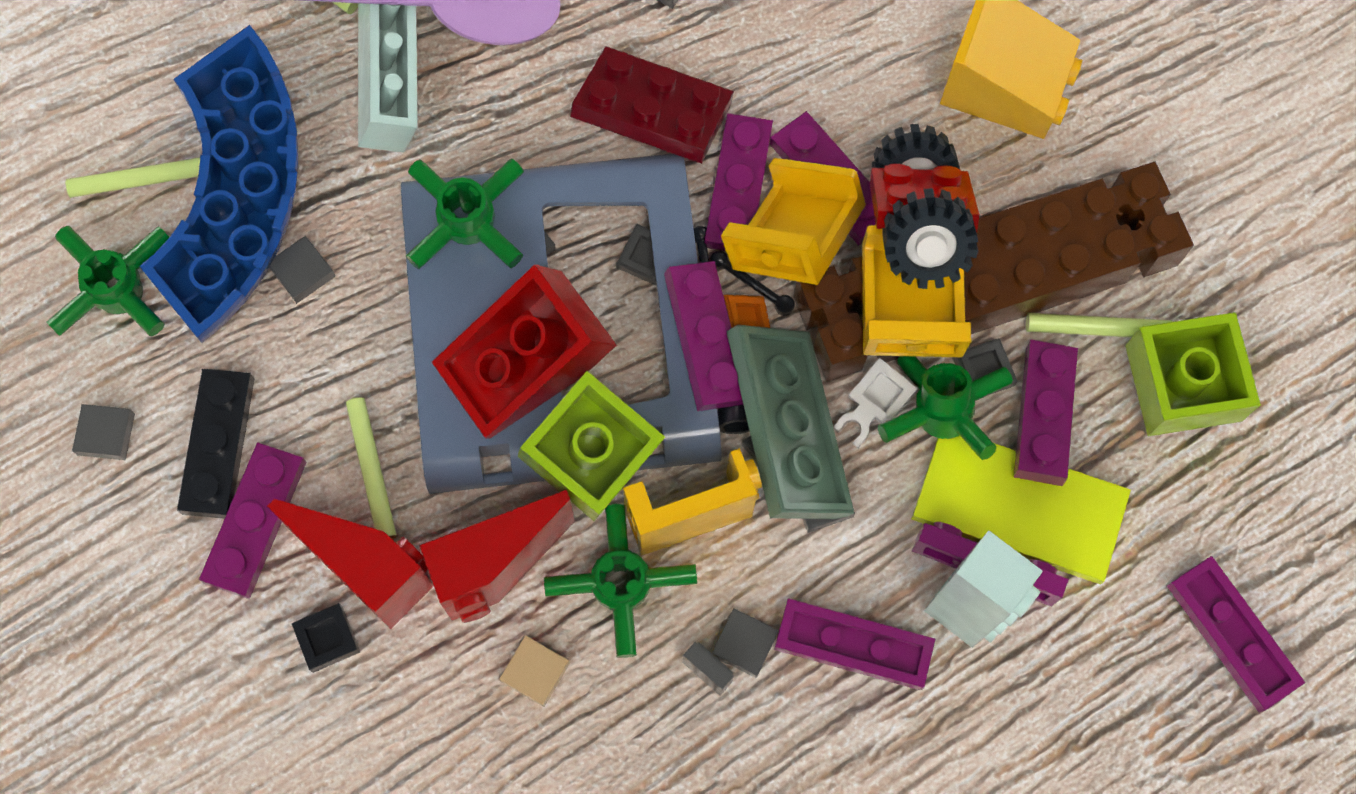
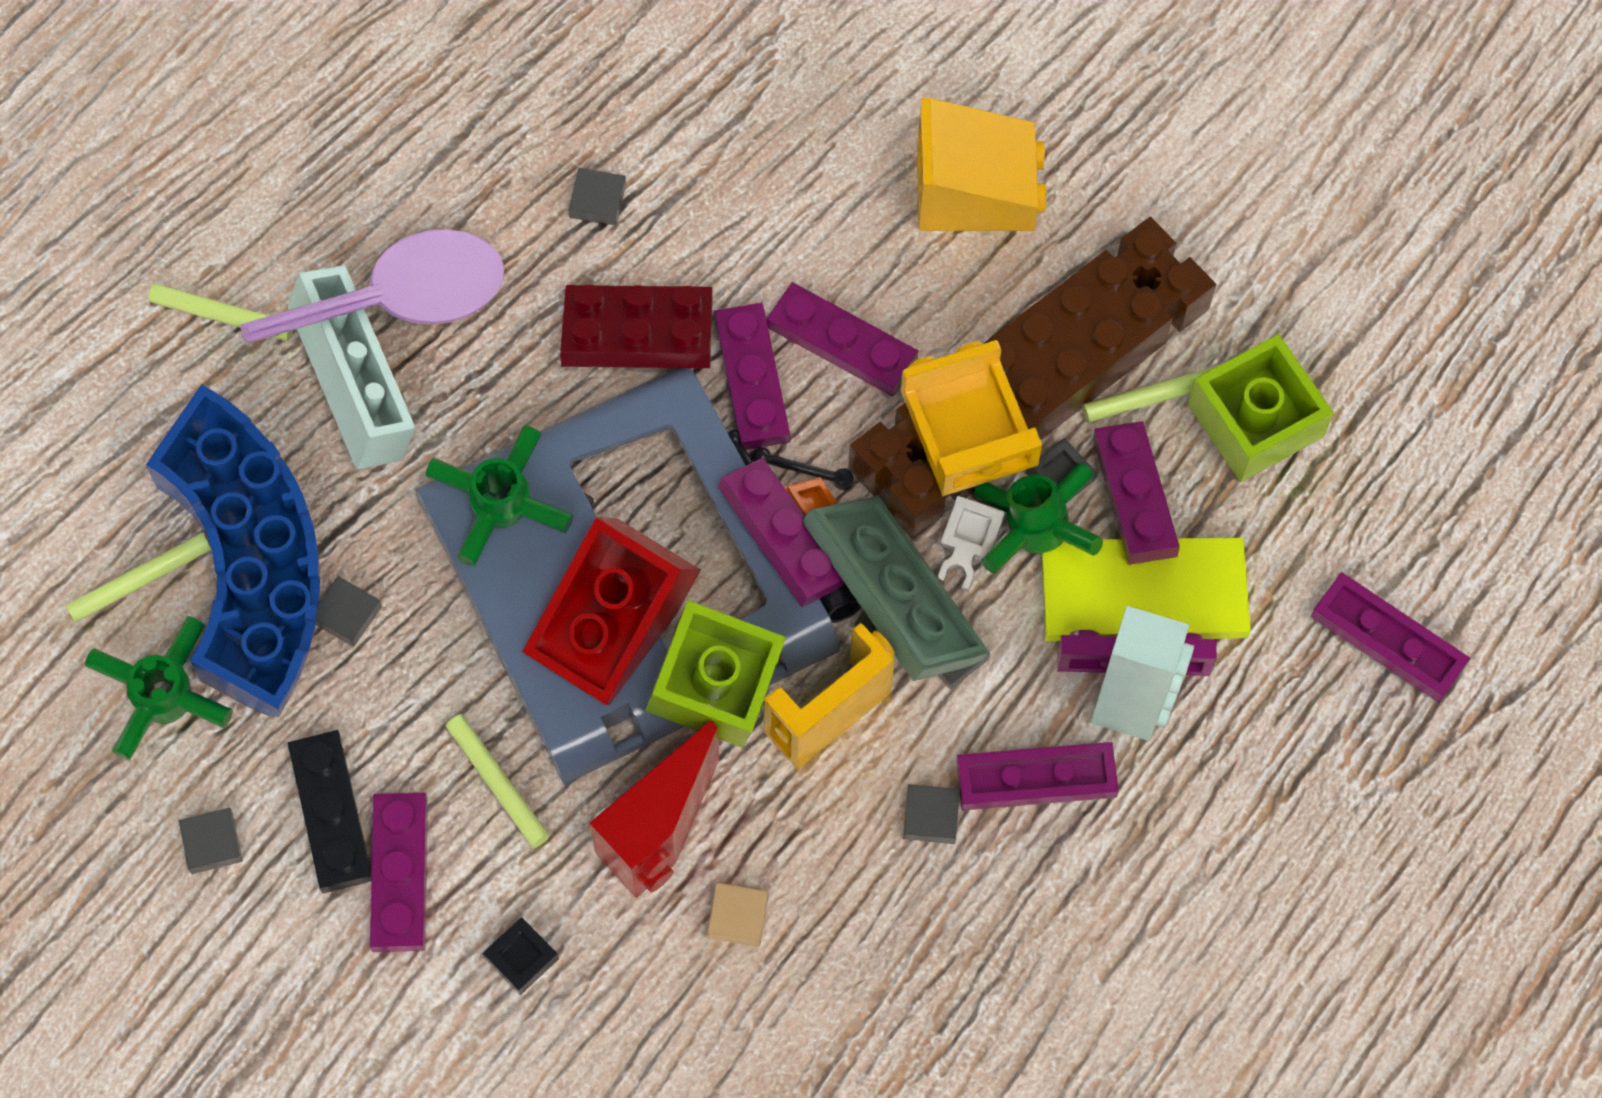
camera: 20 degrees left, 5 degrees down
(374, 567) = (526, 863): red slope -> none
(620, 559) = (780, 811): green bar -> none
(638, 255) = (682, 481): dark grey tile -> none
(708, 668) = (906, 848): dark grey tile -> none
(798, 222) = (828, 392): yellow panel -> none
(924, 207) = (947, 333): plate -> none

